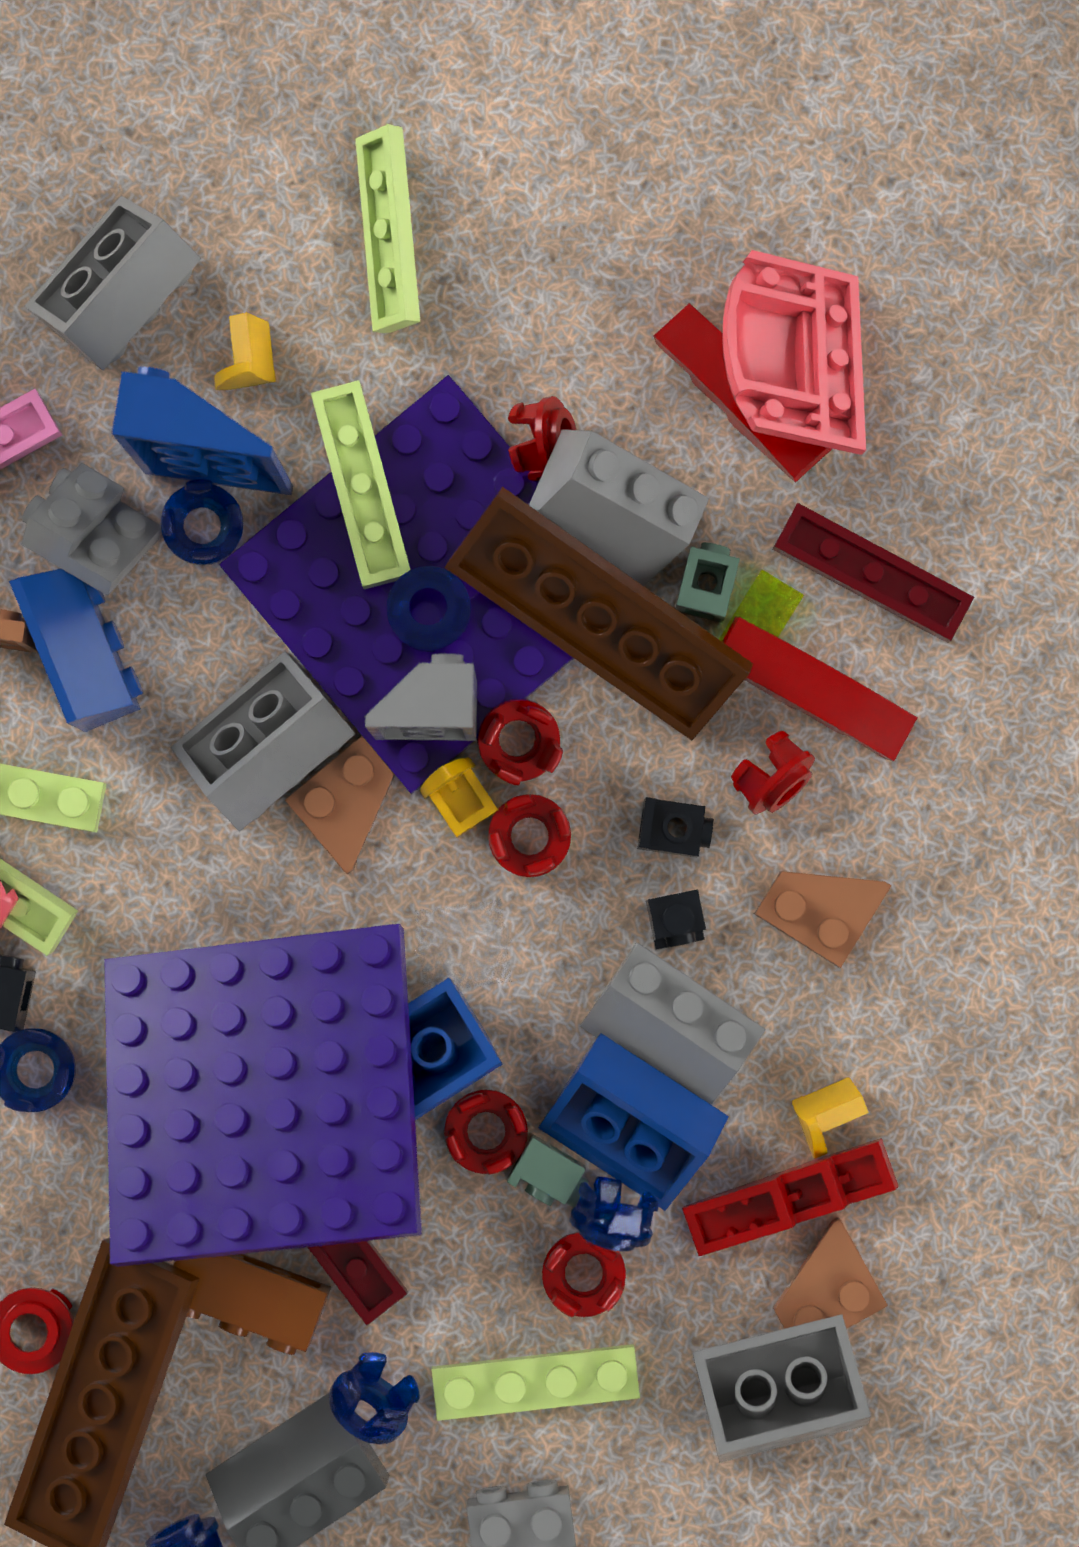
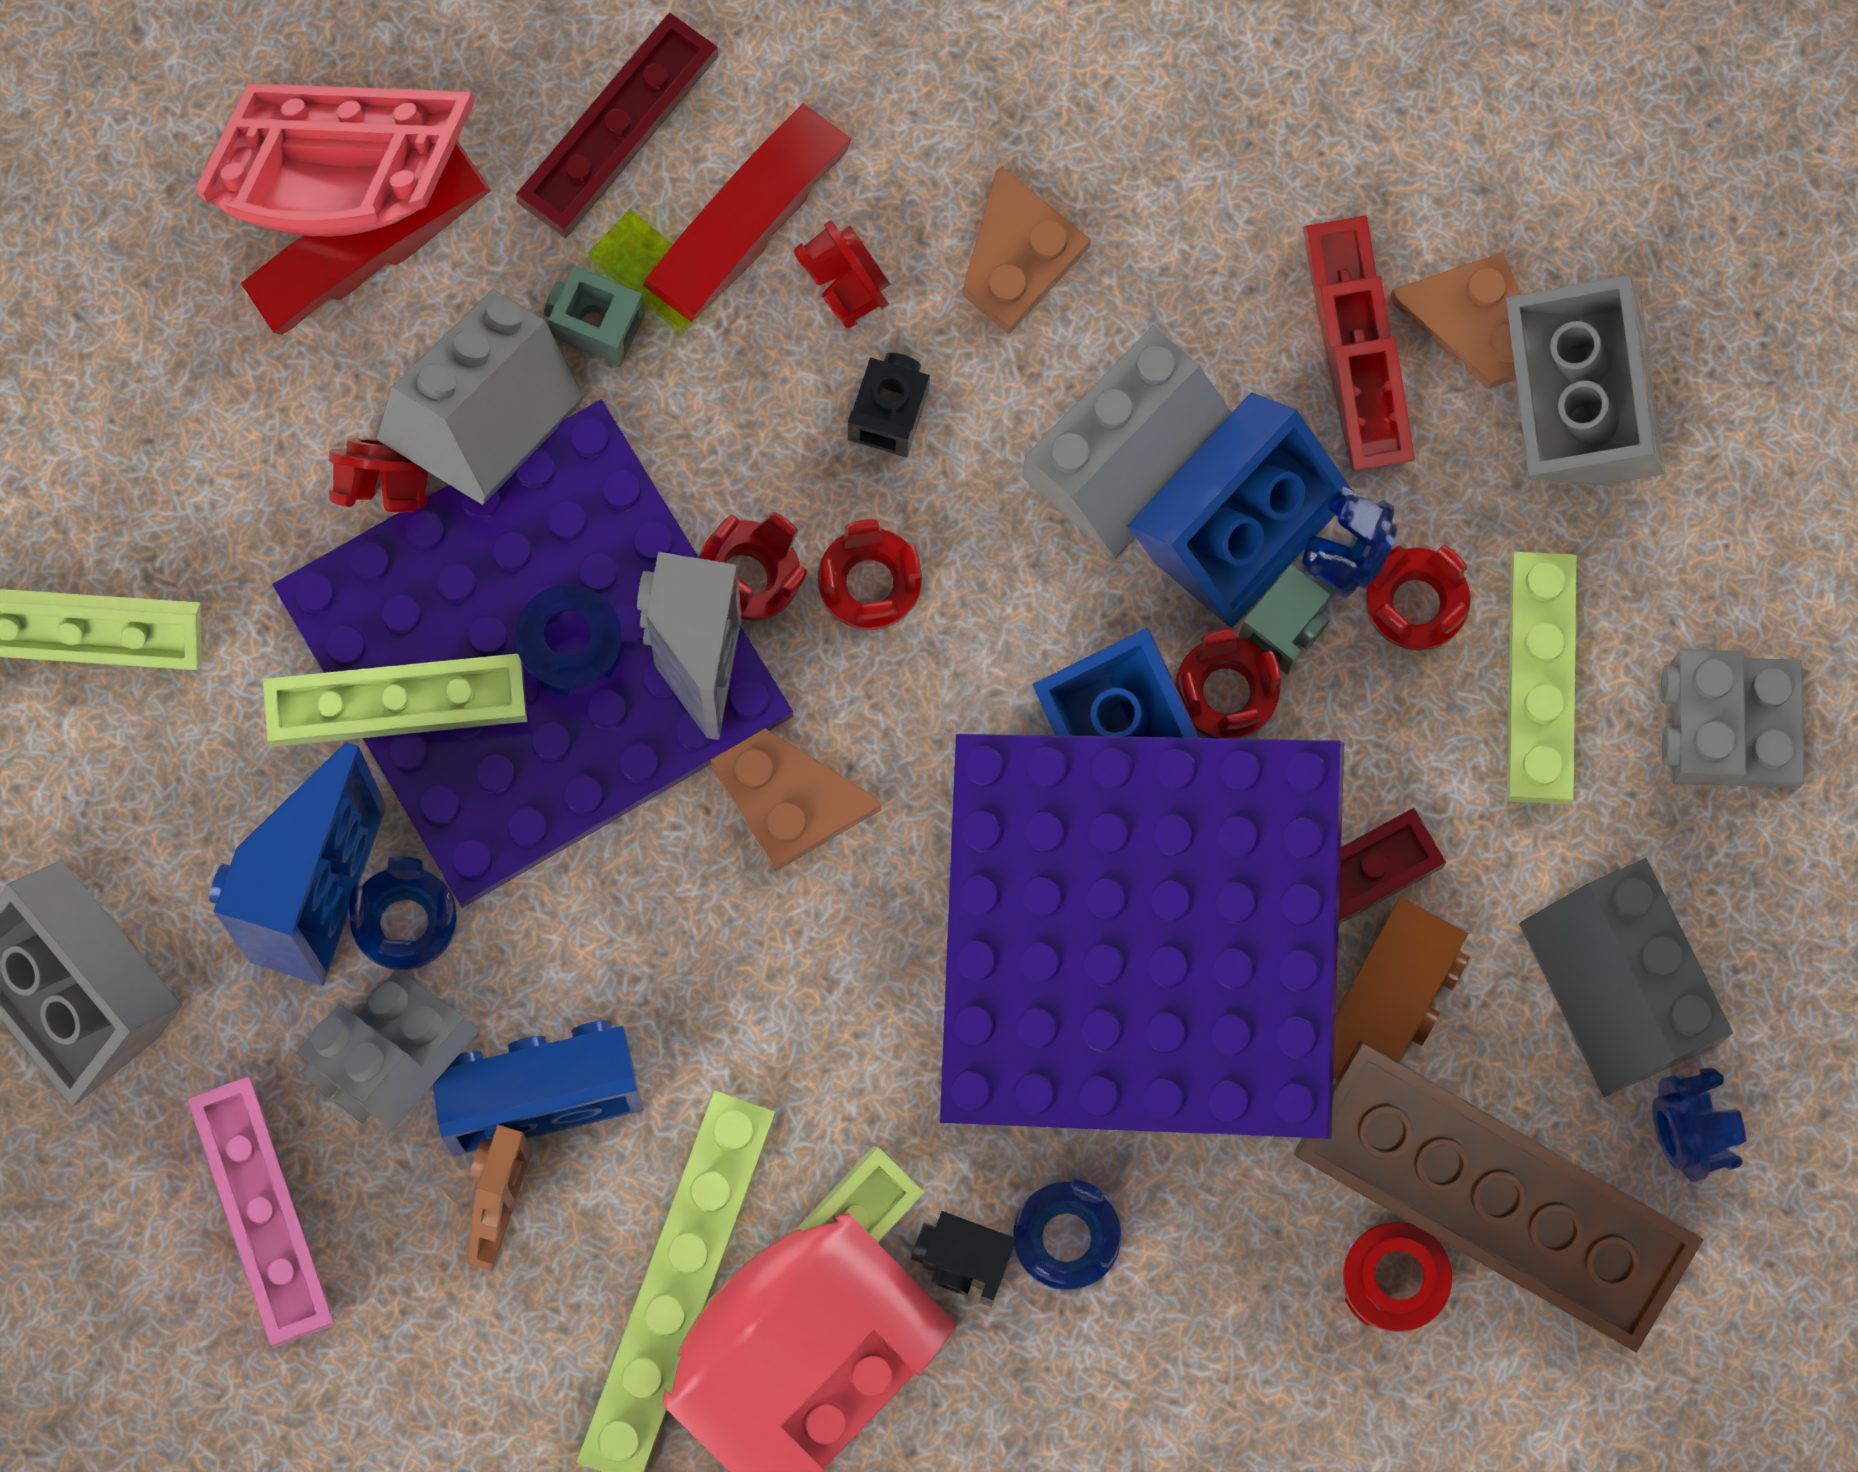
camera: 85 degrees left, 10 degrees down
(251, 354) = (197, 818): yellow tile -> none
(262, 741) = (694, 880): light grey slope -> none
(389, 1401) = (1550, 847): clear blue piece -> none
(459, 795) = (807, 655): yellow tile -> none
(598, 614) = (612, 436): reddish brown plate -> none
(676, 919) = (1001, 416): black brick -> none
(827, 1110) = (1260, 281): yellow tile -> none

